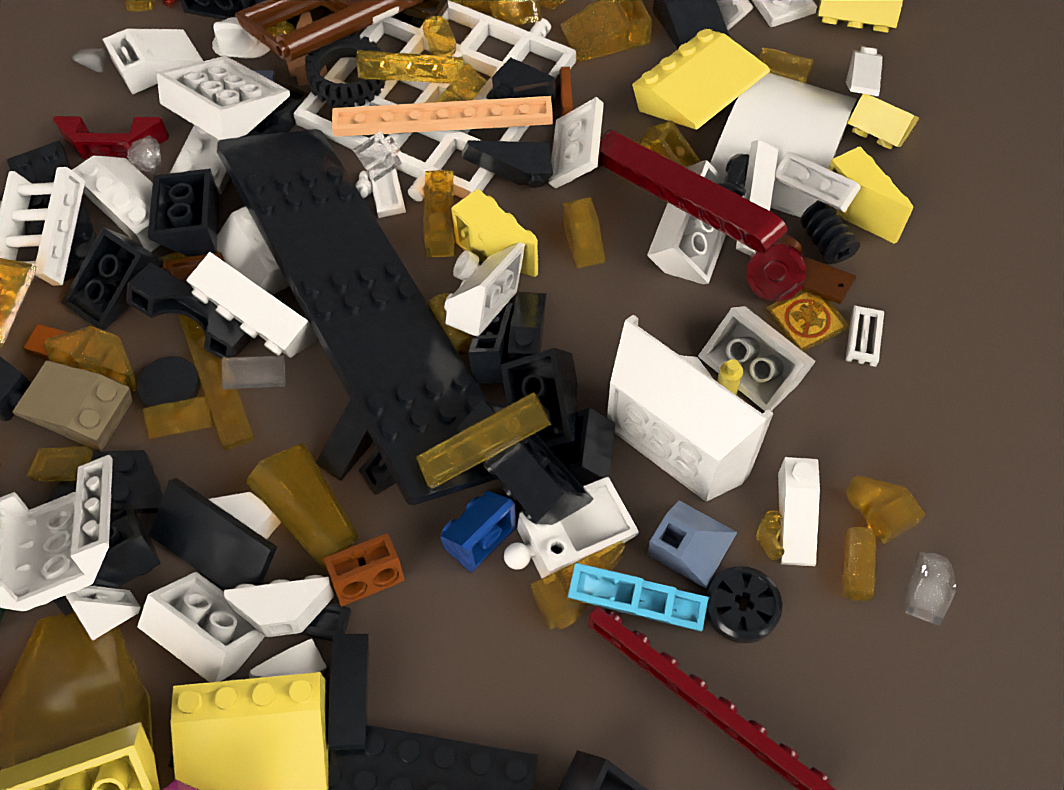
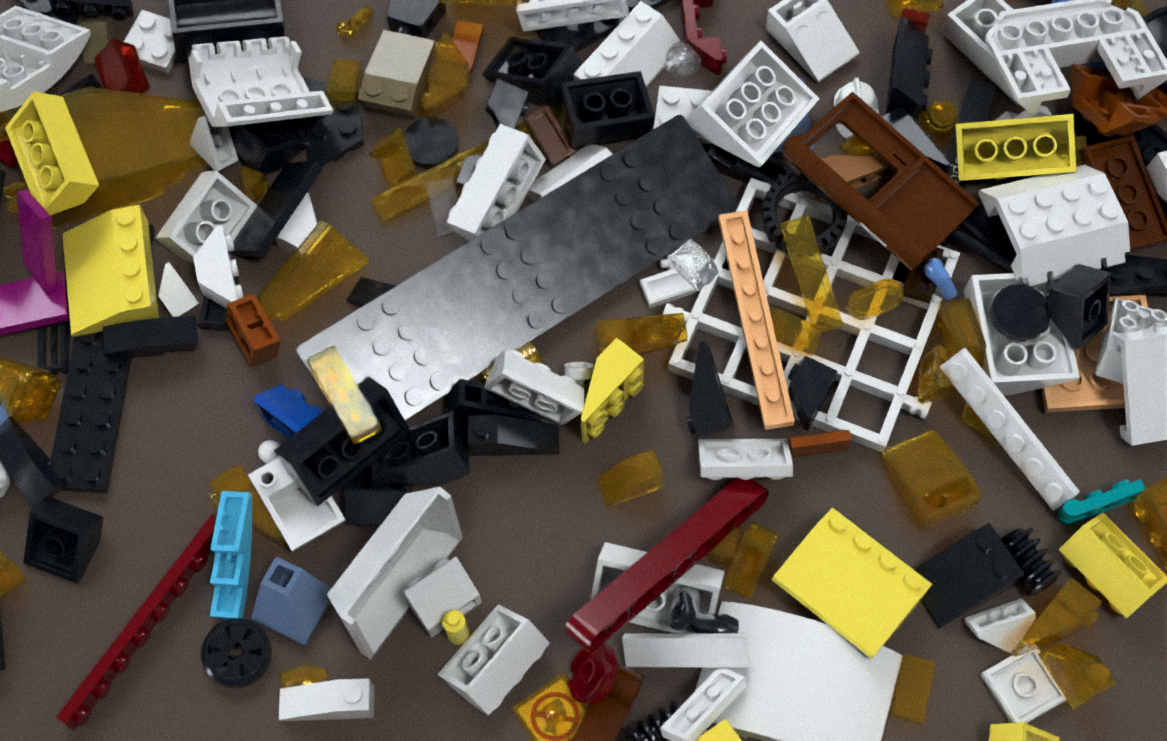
camera: 85 degrees right, 5 degrees up
(166, 569) = (254, 183): none -> clear yellow slope

